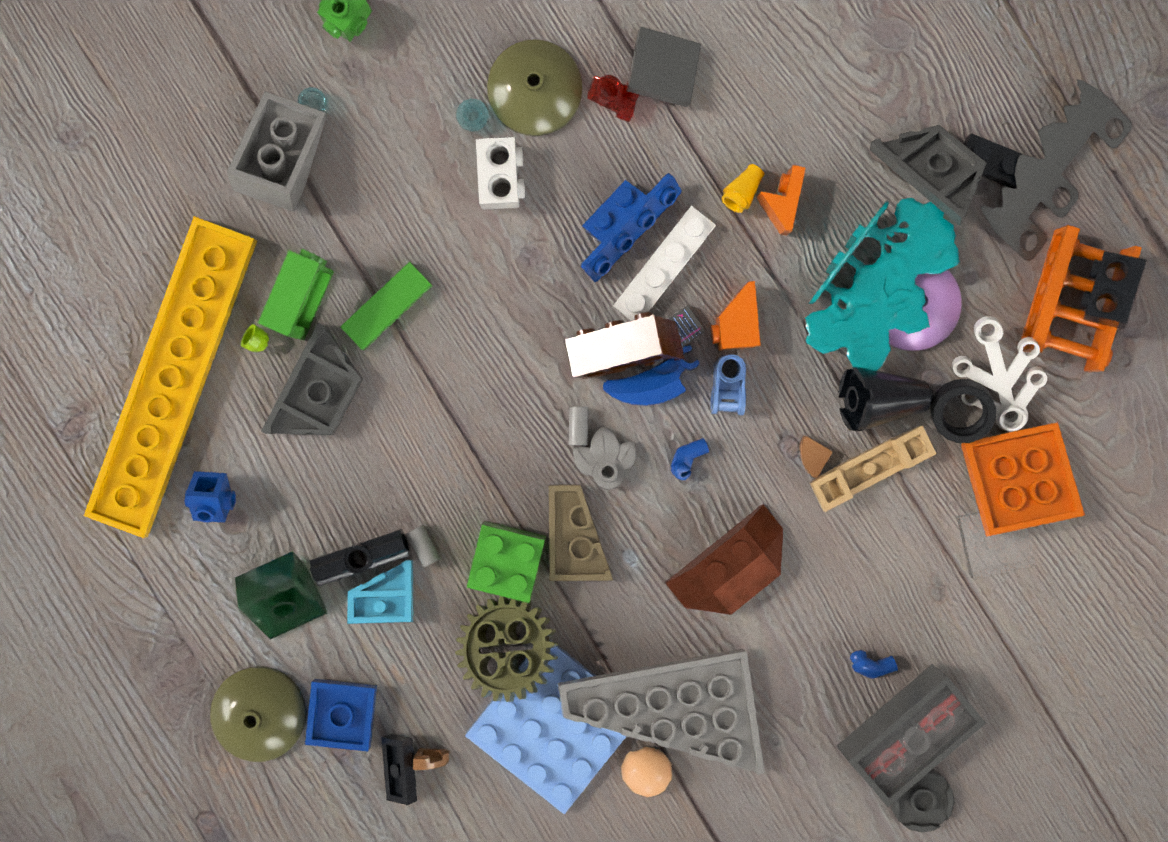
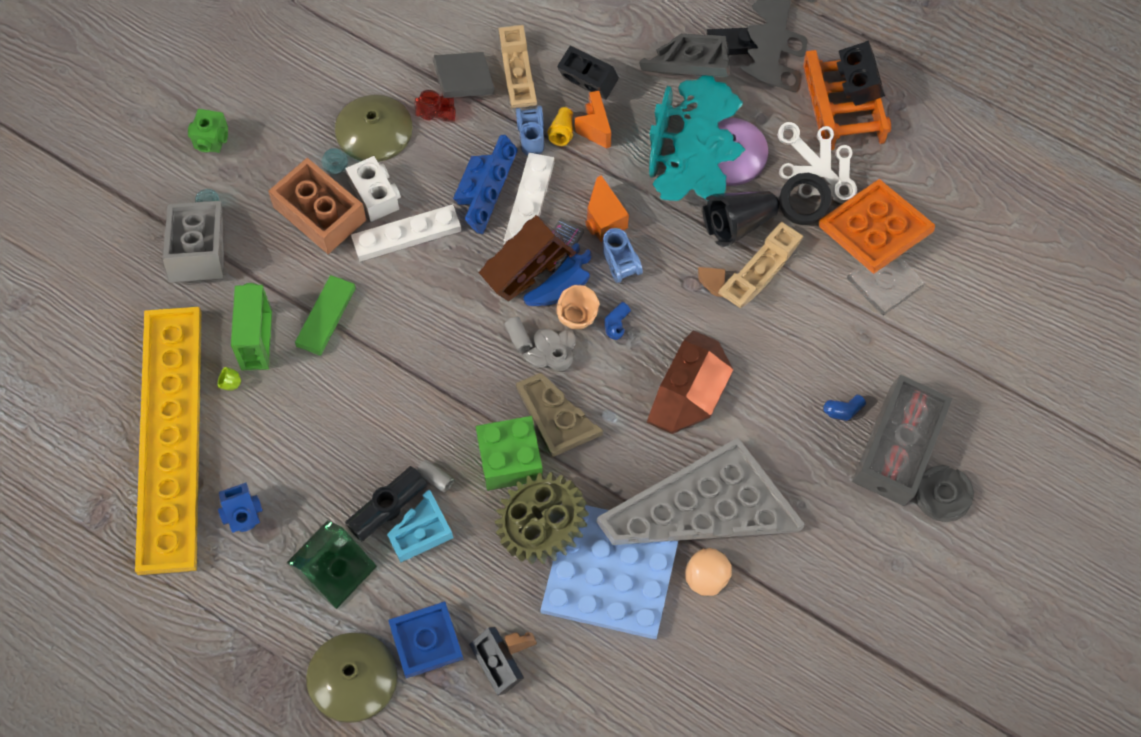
camera: 25 degrees left, 25 degrees down
(316, 390) = (294, 398): dark grey wing -> none
(426, 171) = (317, 205): none -> nougat brick
(513, 243) = (406, 233): none -> white plate
(653, 428) = (577, 307): none -> light nougat hair
(708, 171) = (531, 131): none -> medium blue piece
(729, 86) = (517, 66): none -> tan slope
(805, 134) = (587, 72): none -> black brick

